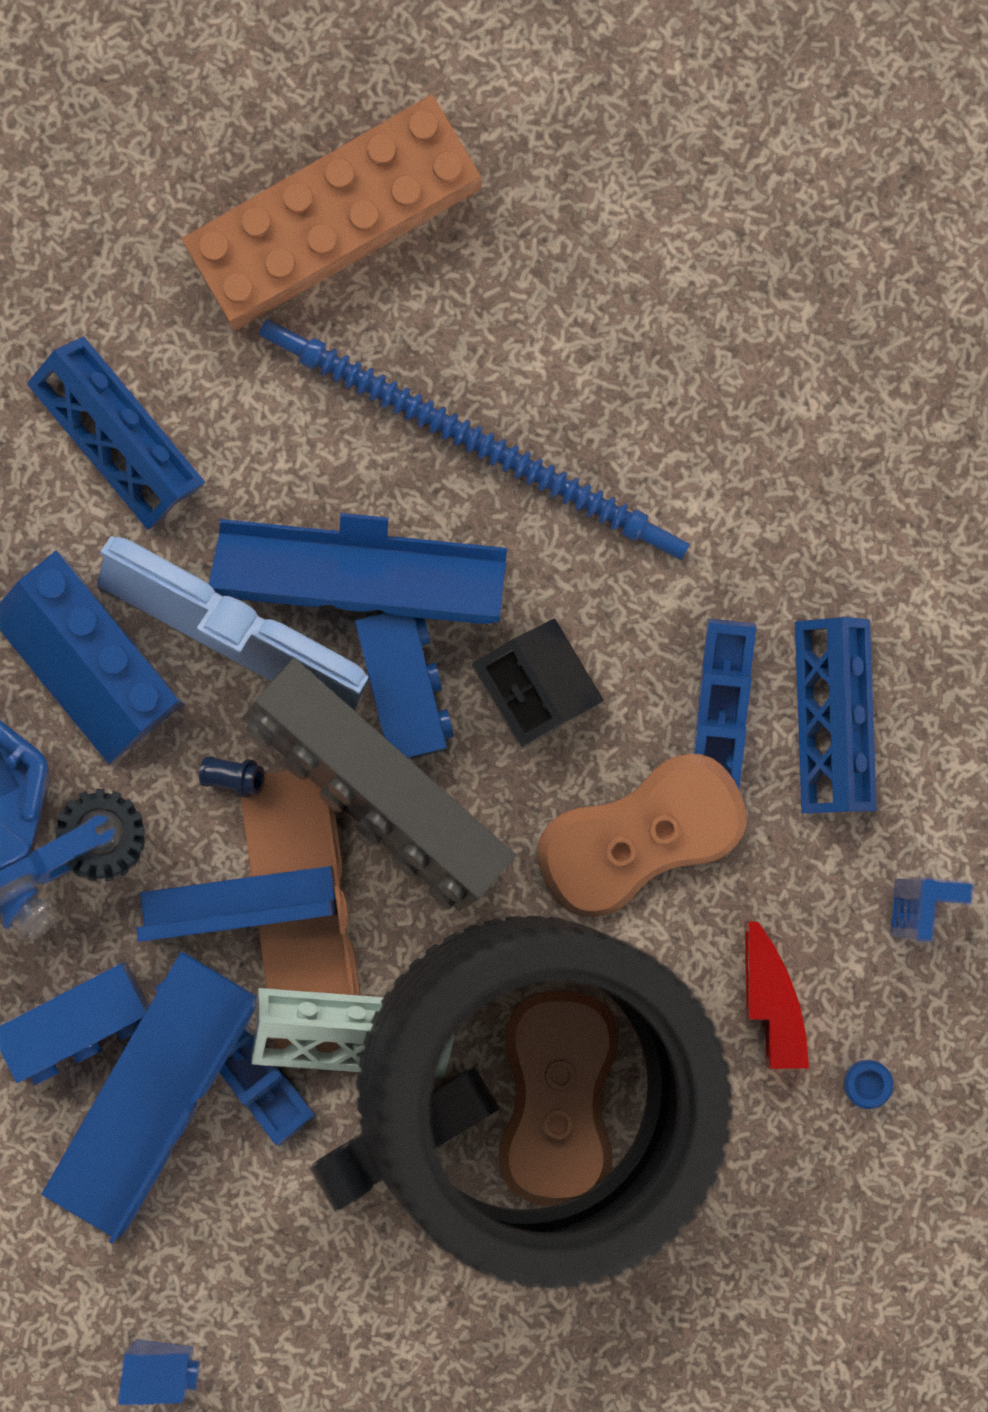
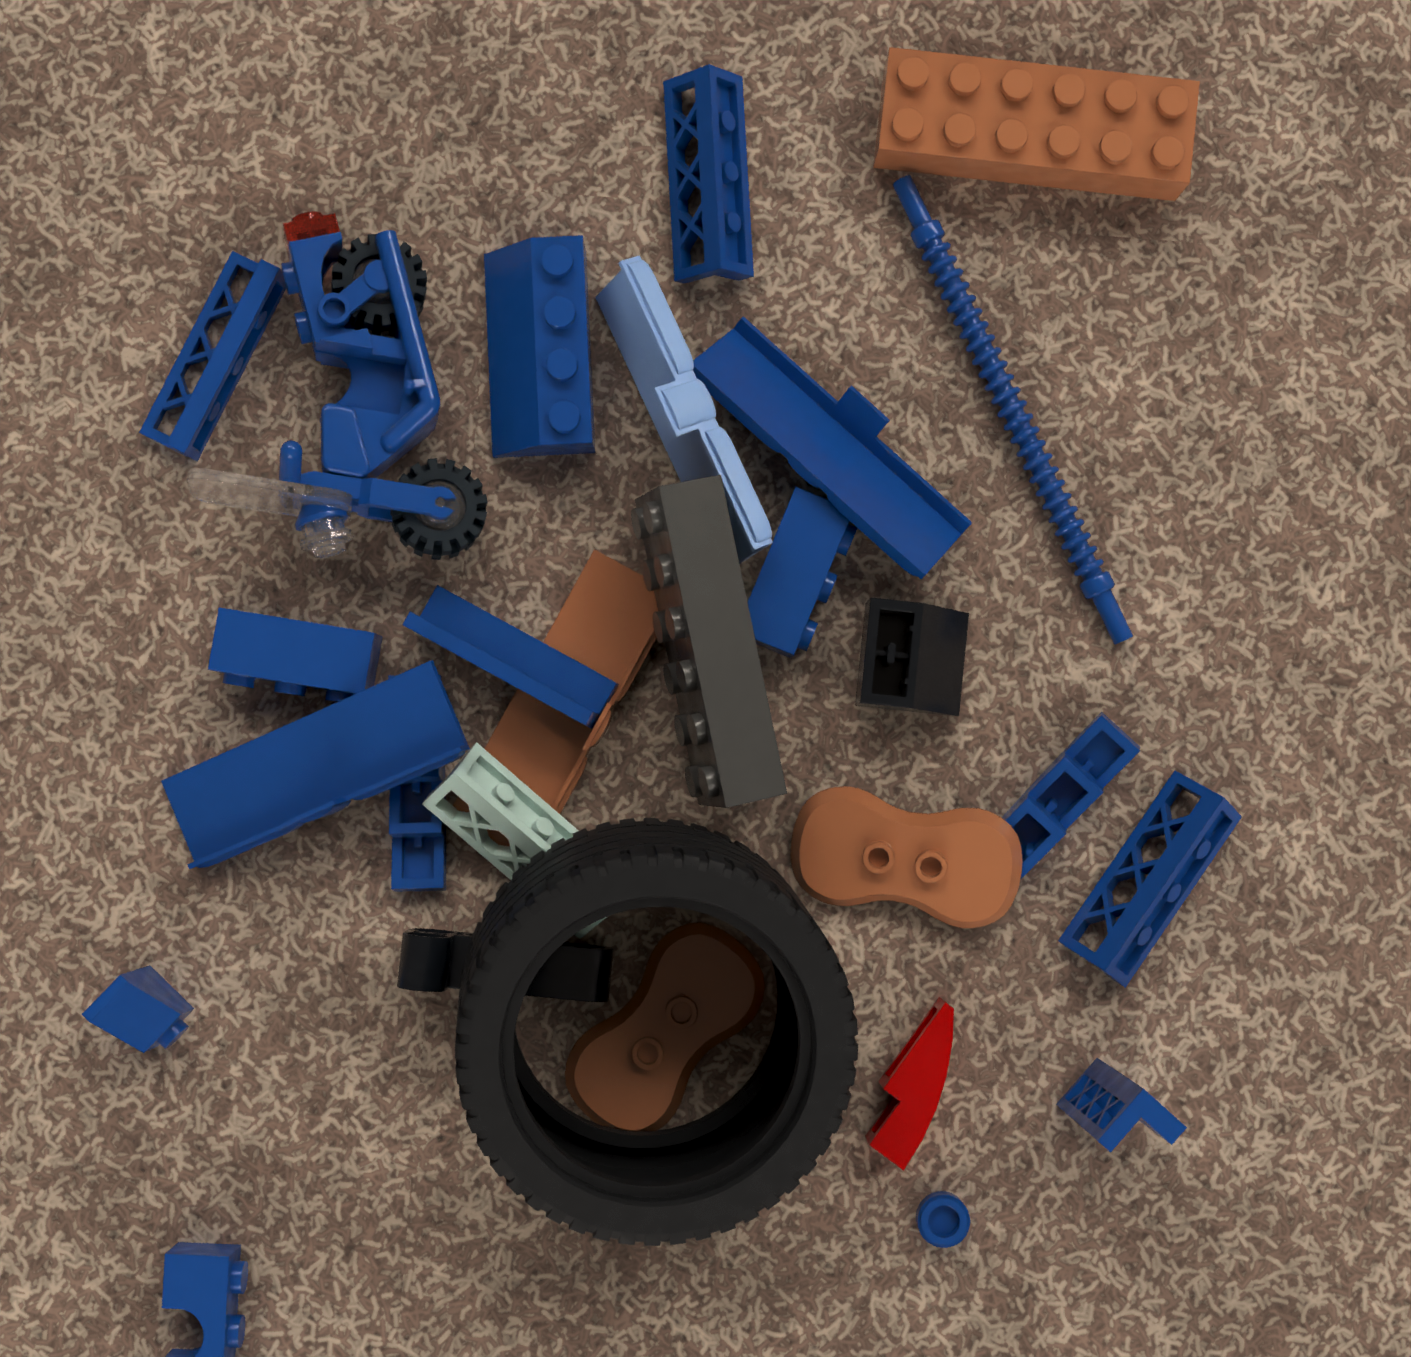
camera: 35 degrees right, 0 degrees up
(241, 777) = (599, 552): dark blue pin -> none

